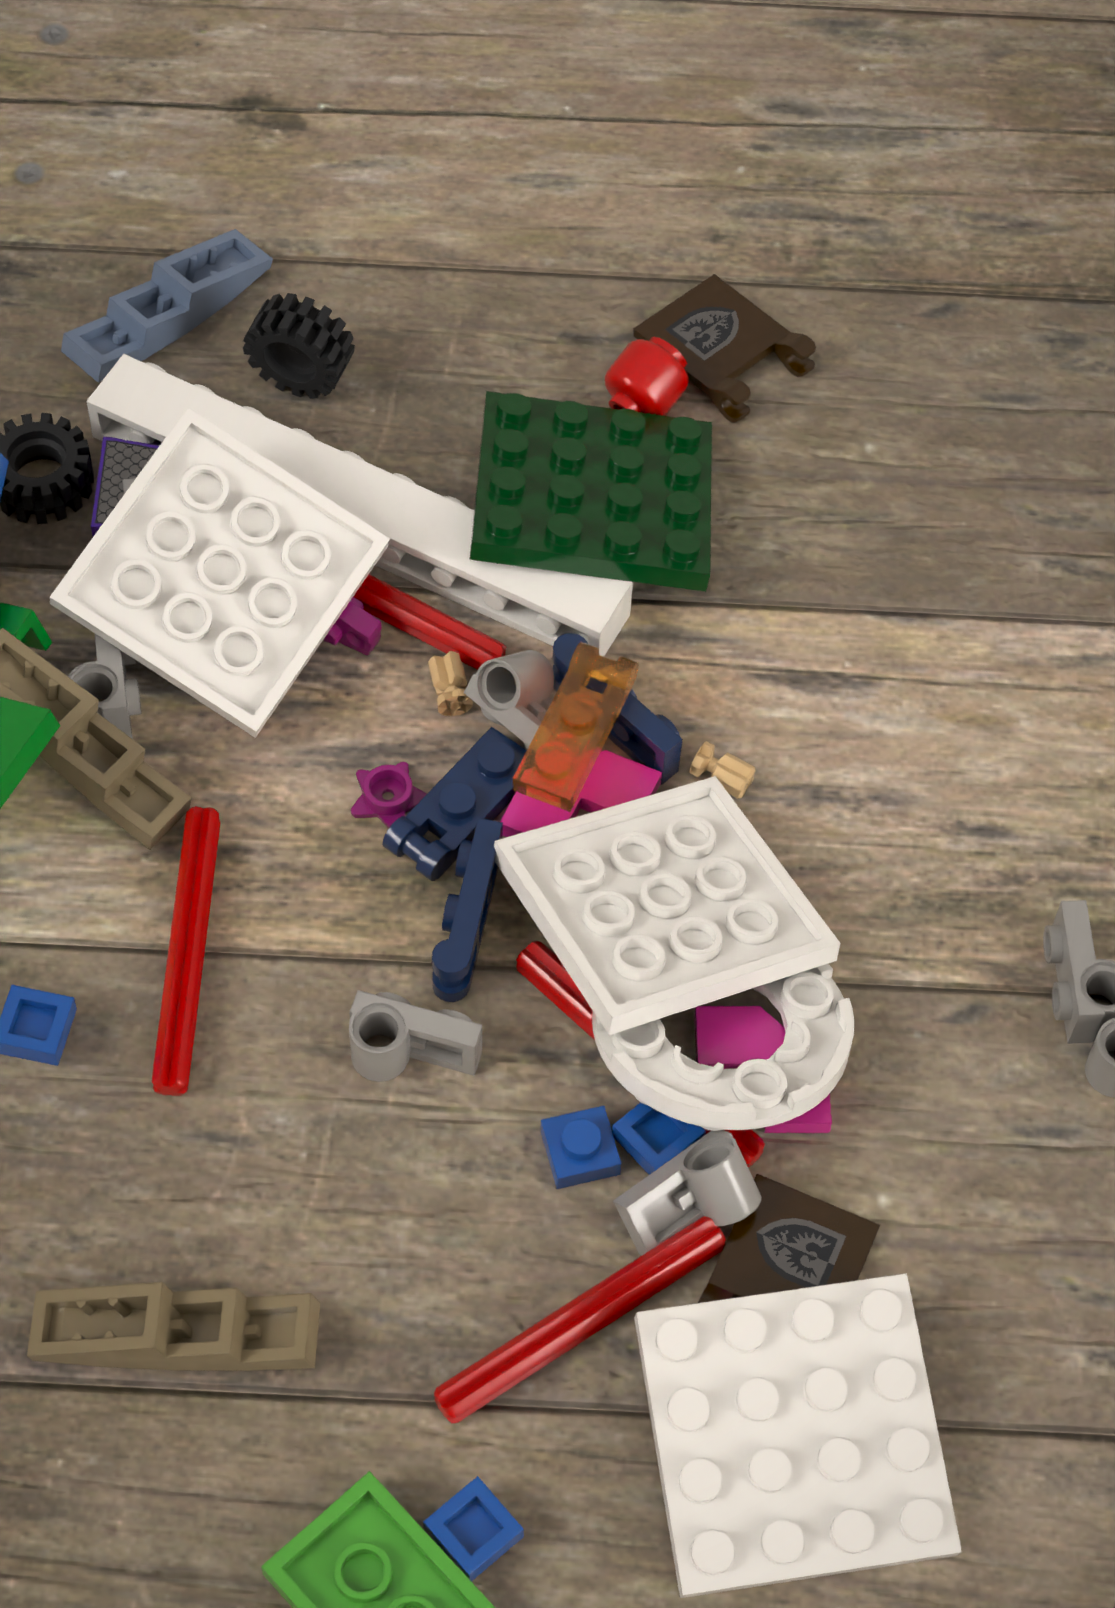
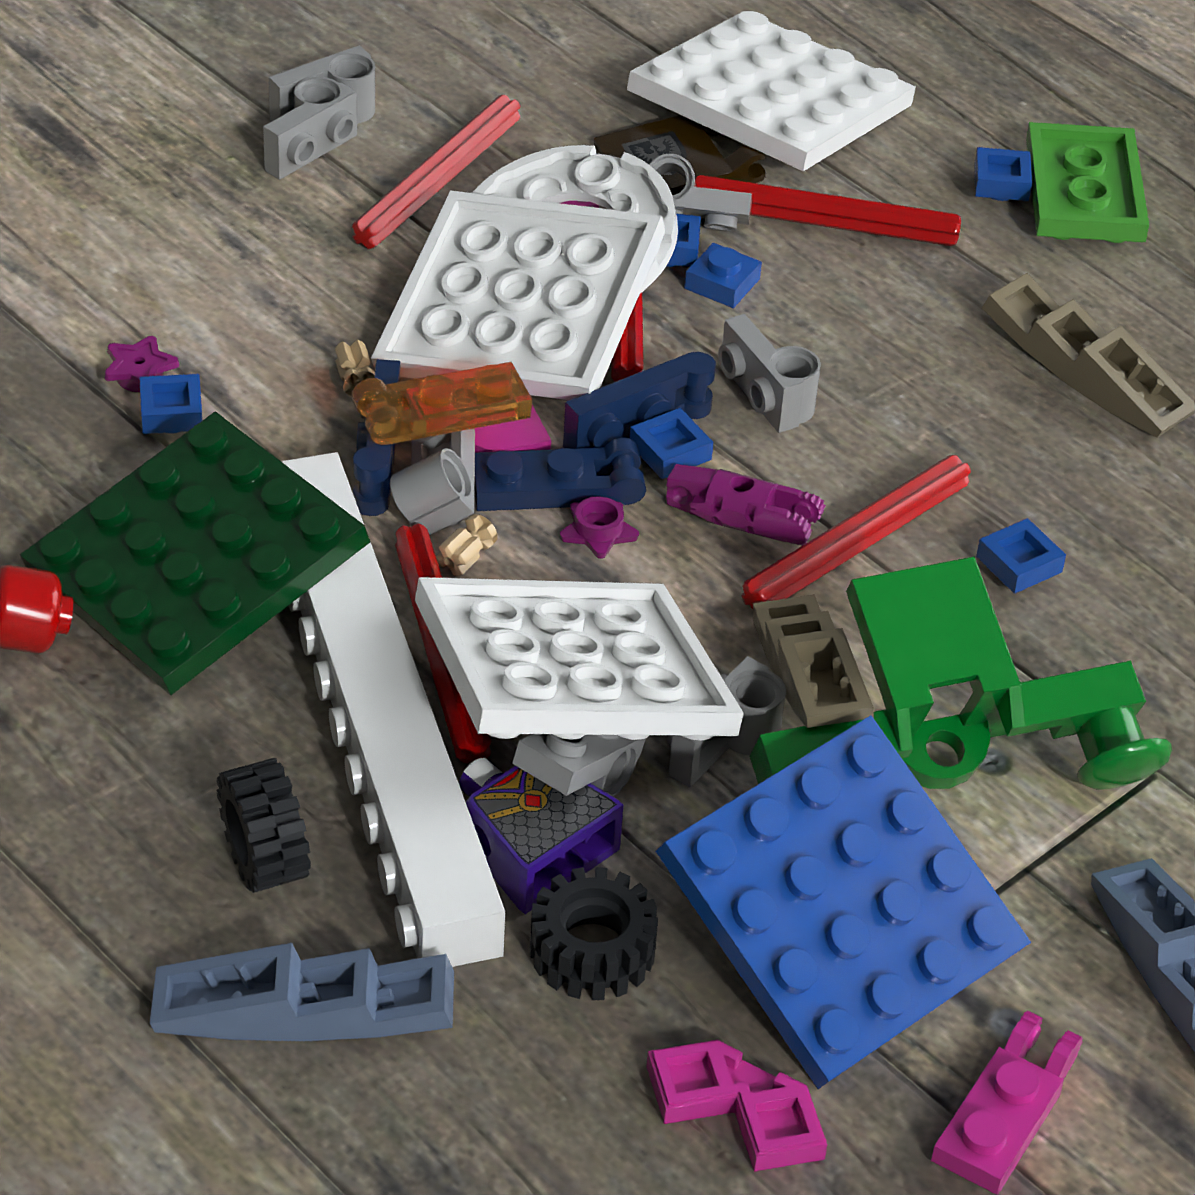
camera: 135 degrees left, 15 degrees down
(293, 887) = (744, 503): none -> magenta hinge
(409, 900) = (671, 441): none -> blue plate
(791, 615) = (170, 403): none -> blue plate
(861, 650) = (137, 361): none -> magenta plate
(941, 1049) = (435, 172): none -> axle

